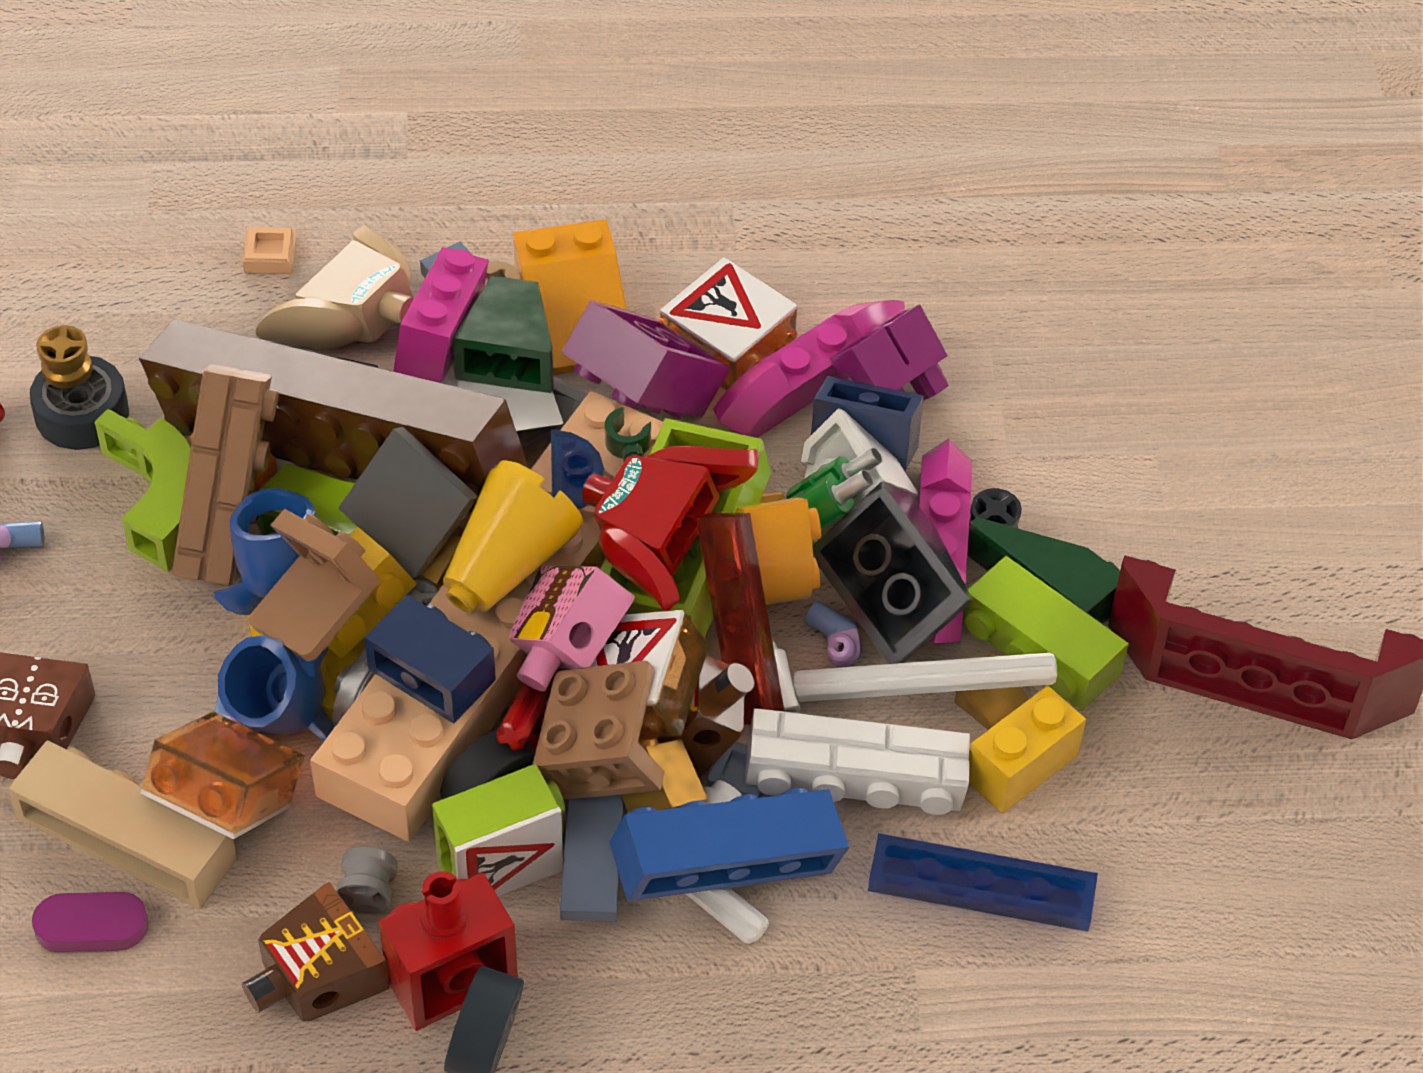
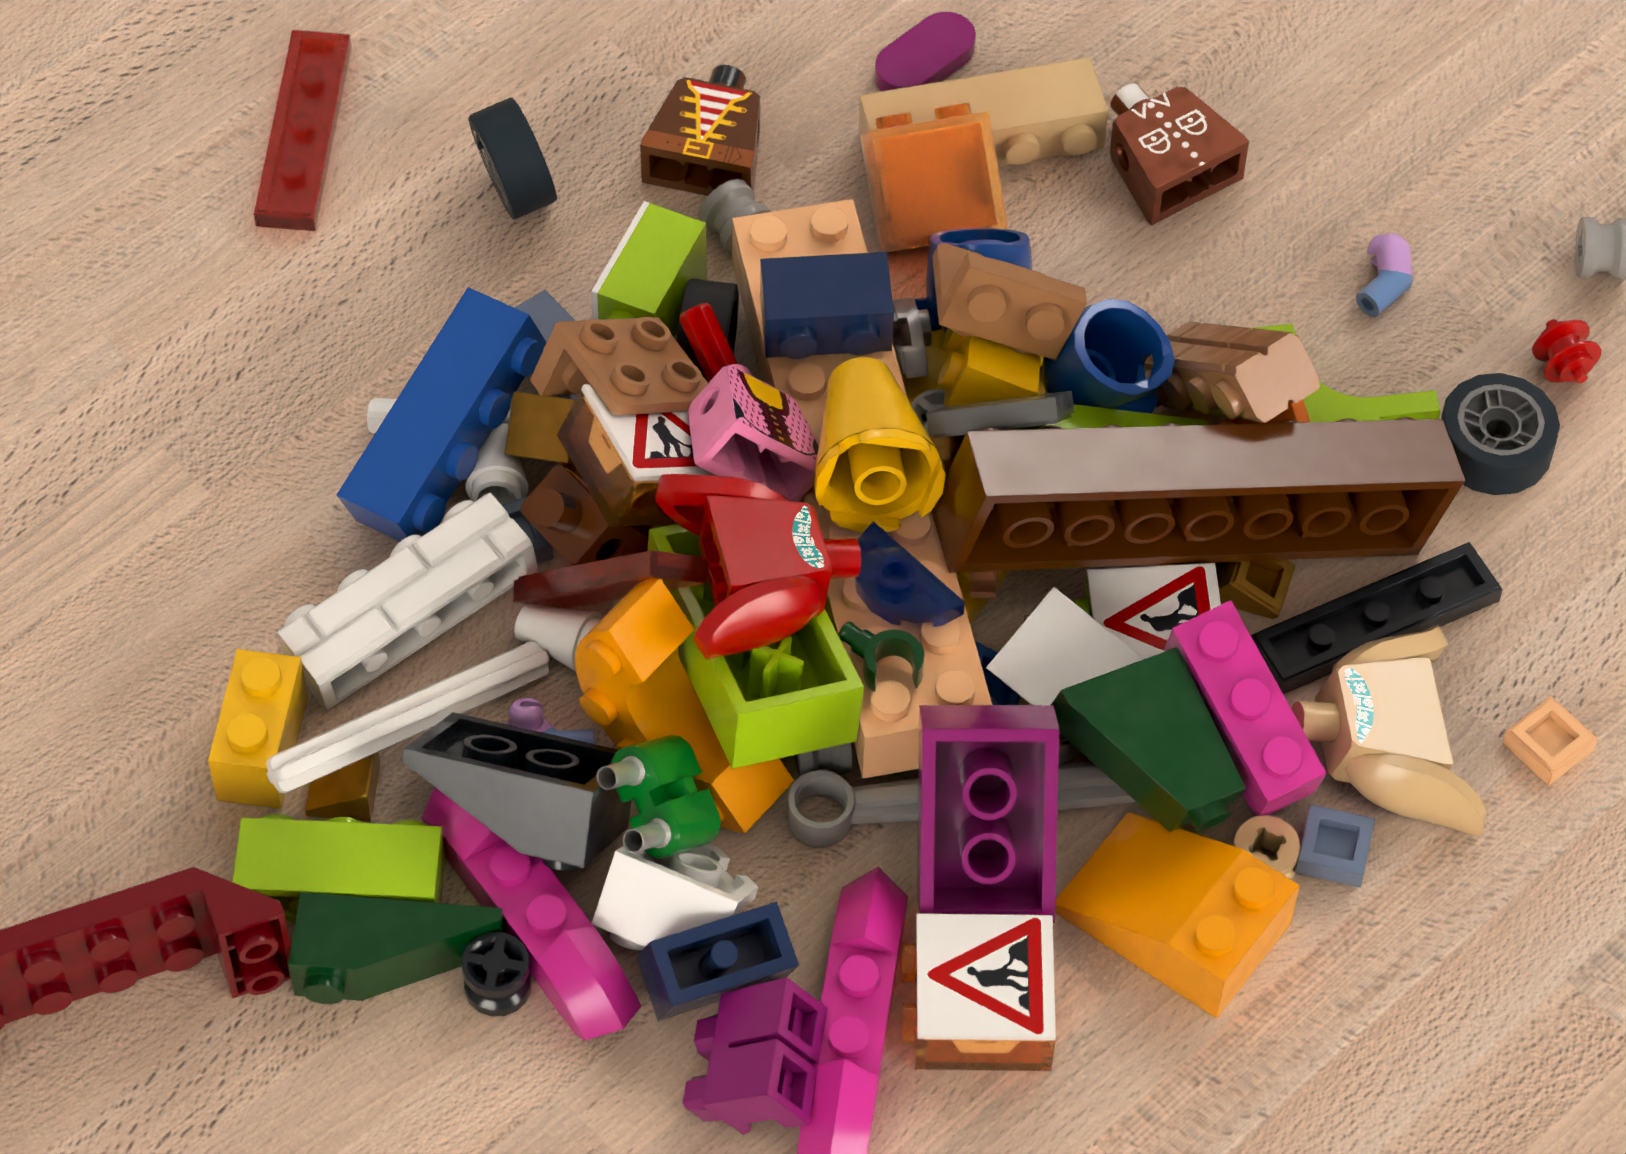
camera: 140 degrees right, 5 degrees up
(64, 356) = (1534, 400): pearl gold wheel -> none
(442, 942) = (595, 181): red brick -> none
(983, 882) = (202, 588): clear blue plate -> none

